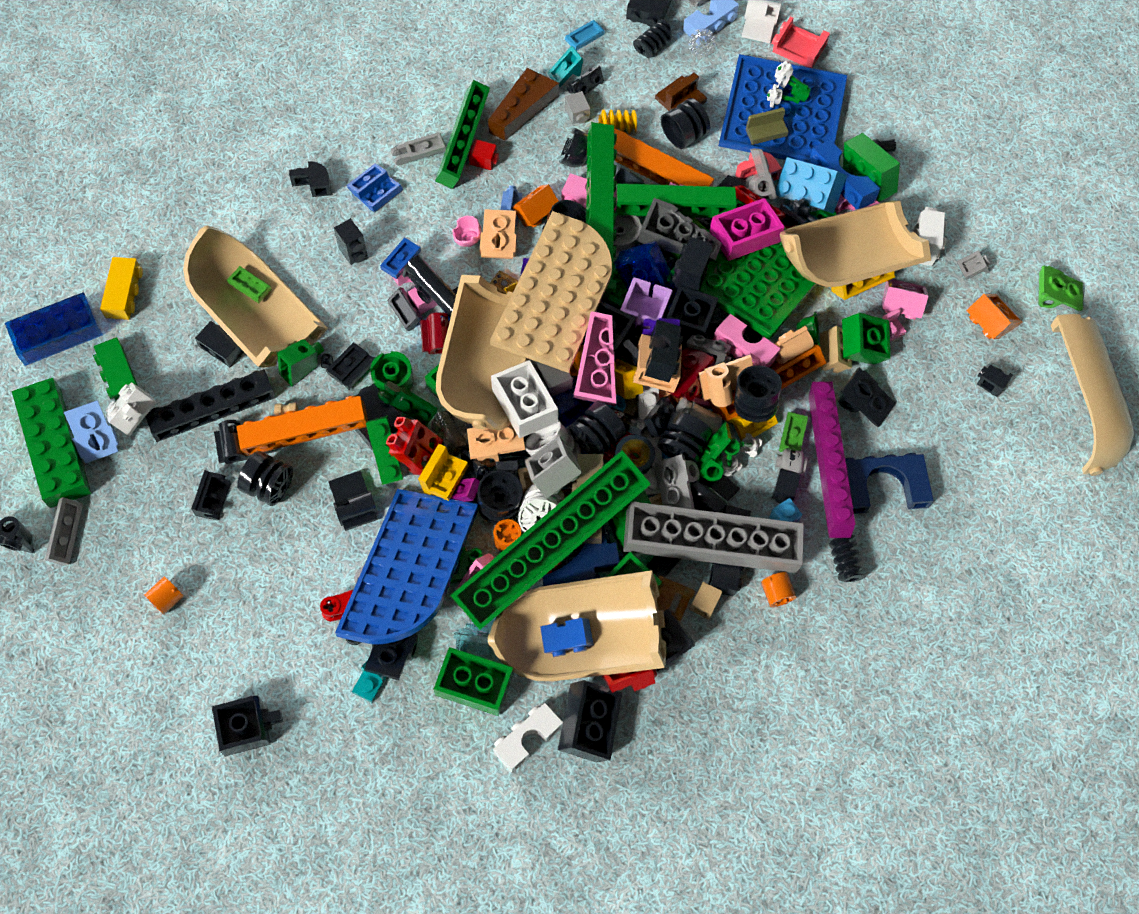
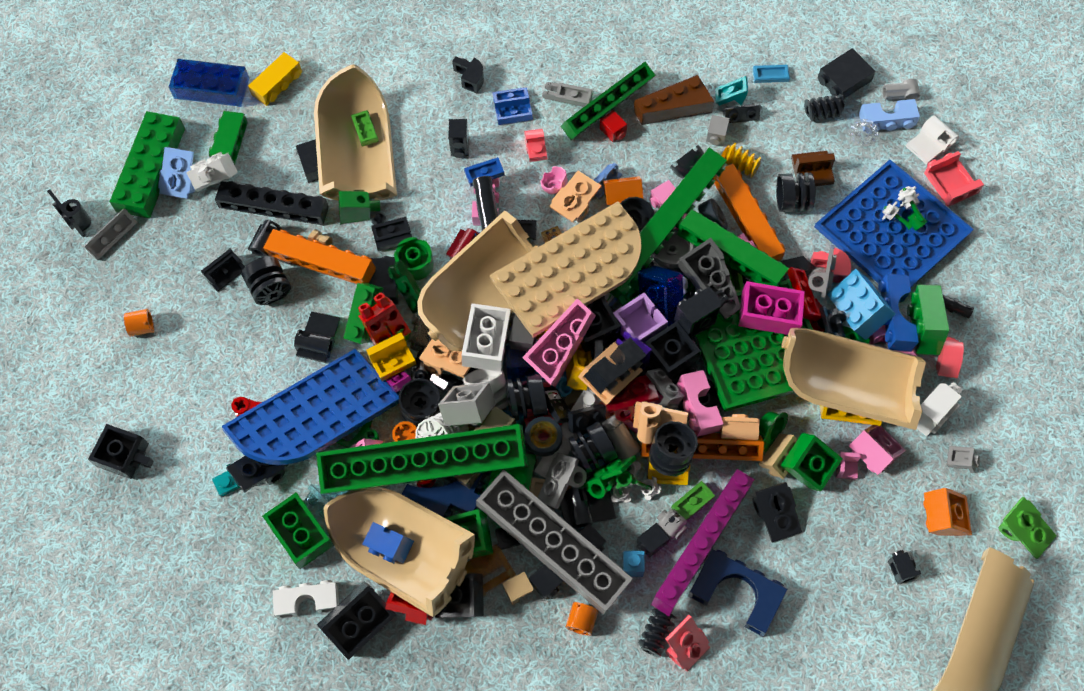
camera: 40 degrees right, 0 degrees up
(404, 309) = (463, 213): tile -> none
(424, 208) = (535, 145): none -> coral brick
(766, 126) = (864, 233): olive panel -> none
(879, 552) = (687, 643): none -> coral piece
(909, 190) = (950, 358): none -> coral brick

